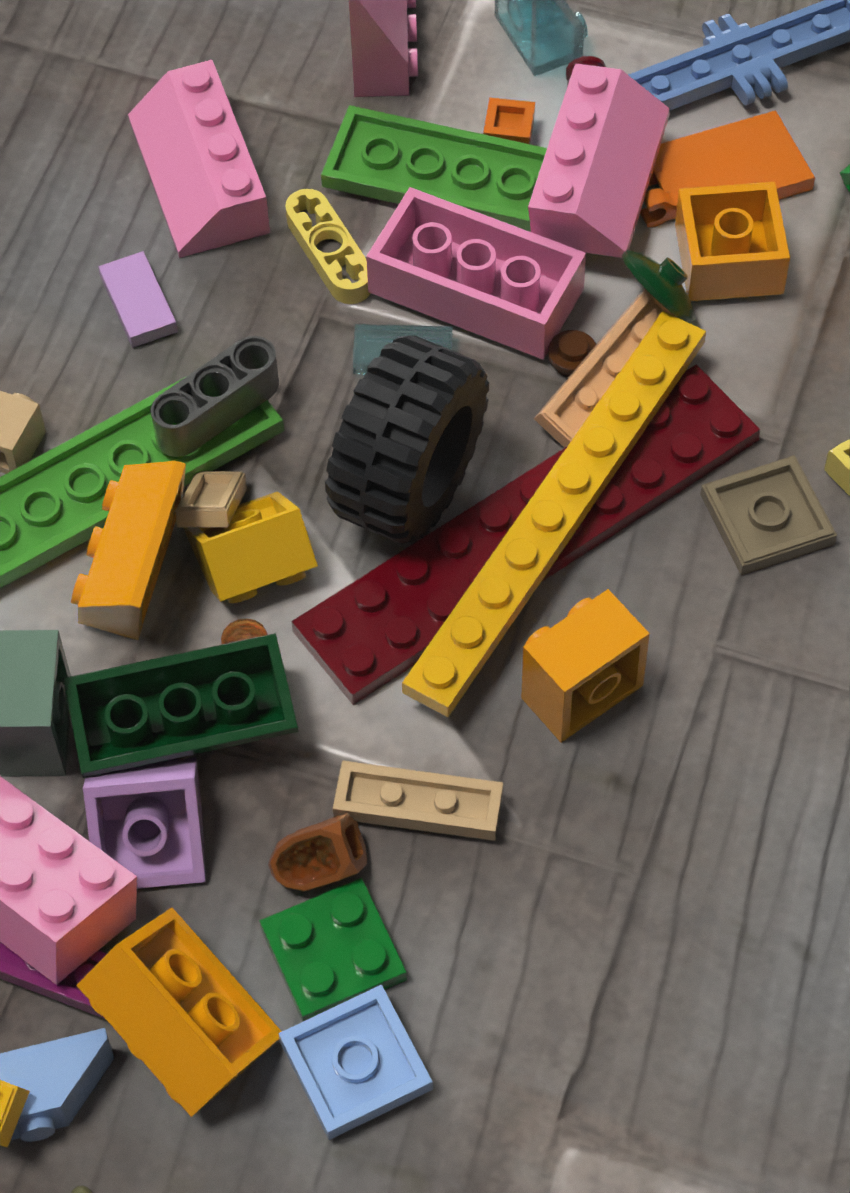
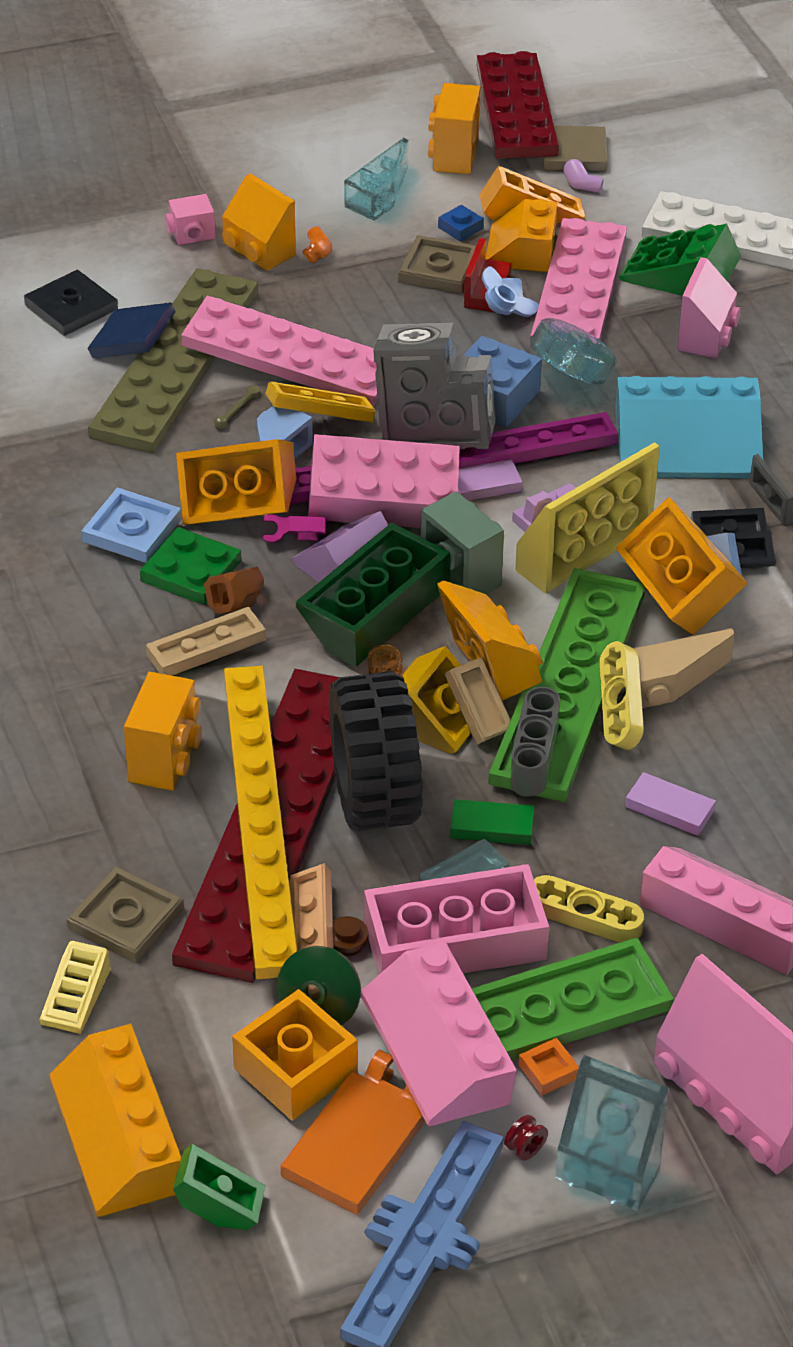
camera: 140 degrees right, 15 degrees down
(47, 412) = (624, 720): none -> light yellow beam
(160, 891) = (304, 527): none -> dark pink plate
(317, 382) = (492, 821): none -> green tile

